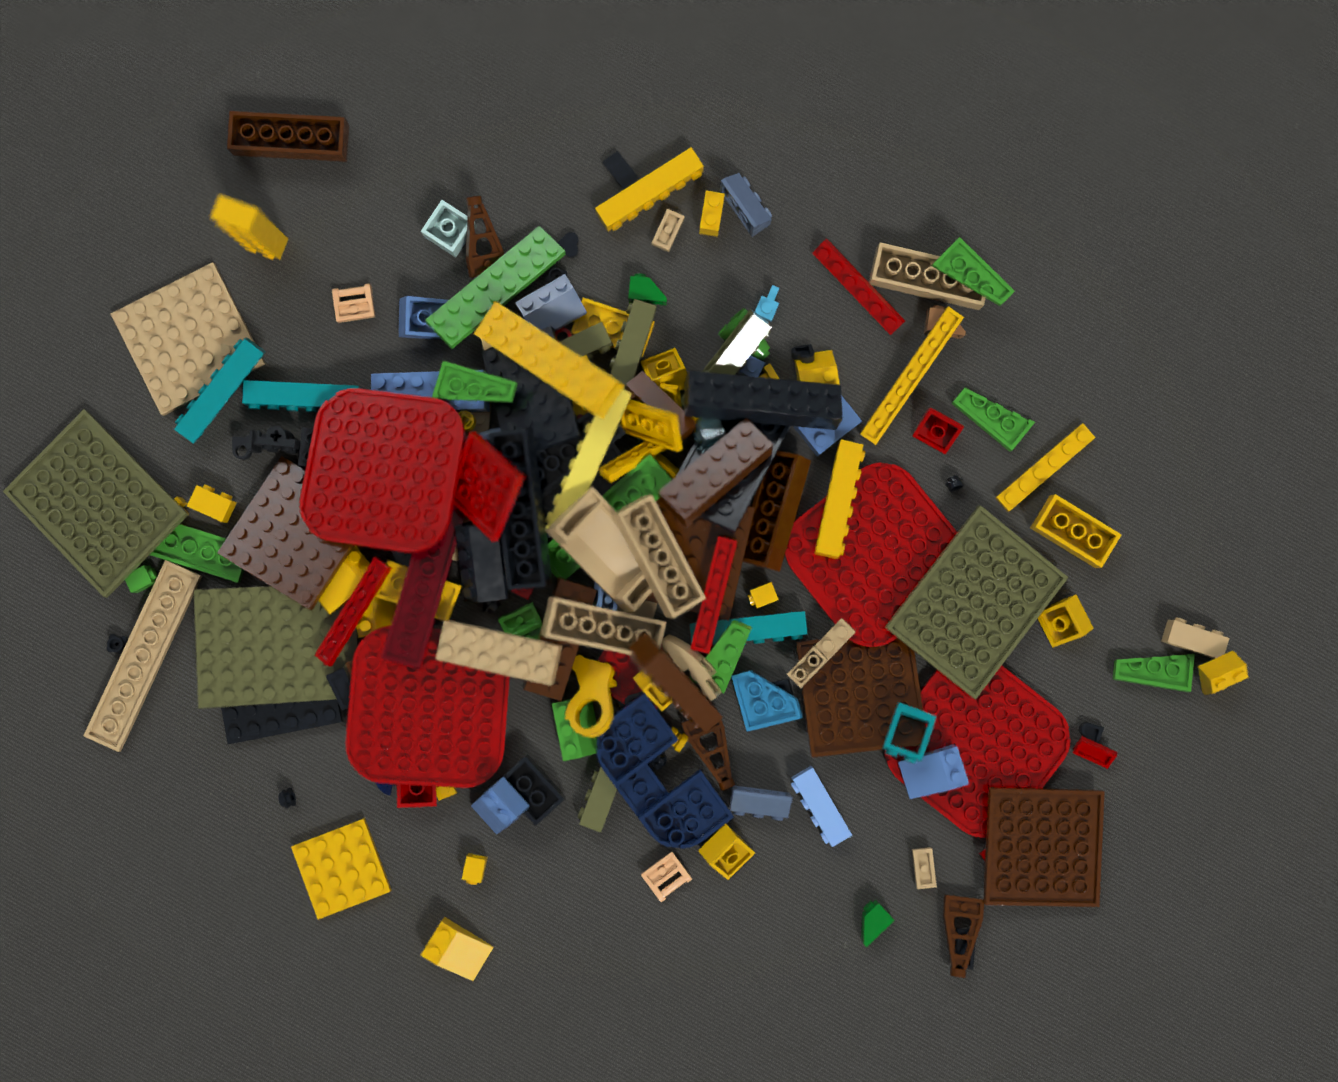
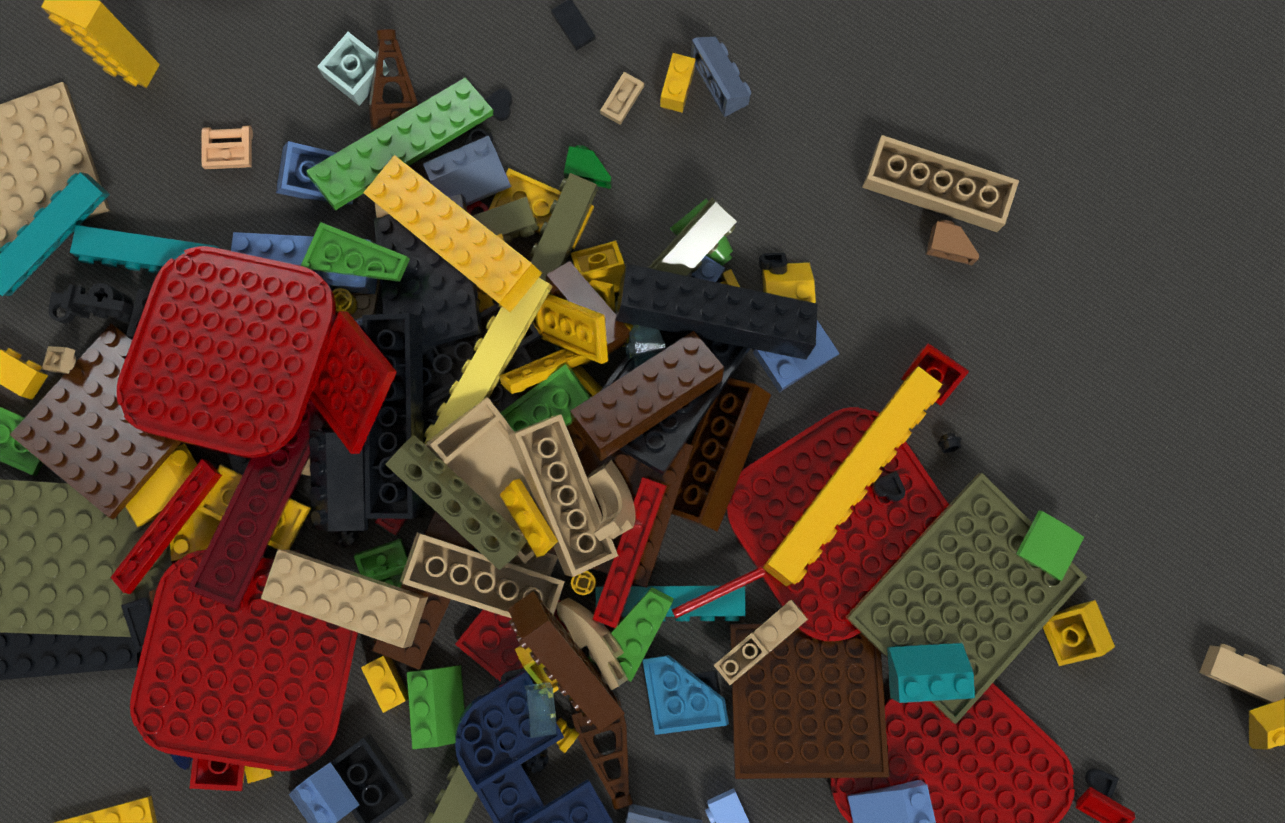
camera: 10 degrees right, 5 degrees down
(245, 489) = (59, 359): none -> tan plate
(287, 798) = (53, 759): black plate -> none
(535, 714) = (385, 683): none -> yellow brick
(579, 570) = (456, 502): none -> olive brick
(594, 685) = (463, 649): yellow animal -> none
(634, 576) = (528, 517): none -> yellow plate
(649, 190) = (604, 47): yellow brick -> none
(659, 720) = (540, 709): none -> clear light blue slope
(680, 622) = (583, 583): none -> yellow wheel
(698, 555) = (614, 499): none -> tan arch
(762, 595) = (693, 560): yellow brick -> none
(767, 306) = (735, 201): medium azure plate -> none
(785, 618) = (718, 592): none -> red bar
(839, 498) = (801, 448): yellow brick -> none
(858, 286) = (850, 189): red plate -> none
(880, 518) = (852, 476): none -> yellow brick
(910, 523) = (889, 487): none -> black tile
(911, 375) = (907, 302): yellow tile -> none
(915, 714) = (877, 736): teal window -> none
(952, 662) = (930, 673): none -> teal slope
(973, 272) = (994, 180): bright green wing -> none
(995, 420) = (1010, 372): bright green wing -> none
(1037, 556) = (1050, 545): none -> bright green slope
(1045, 467) = (1065, 435): yellow plate -> none
(1075, 531) = (1101, 519): yellow brick -> none
(1163, 672) = (1201, 713): bright green wing -> none

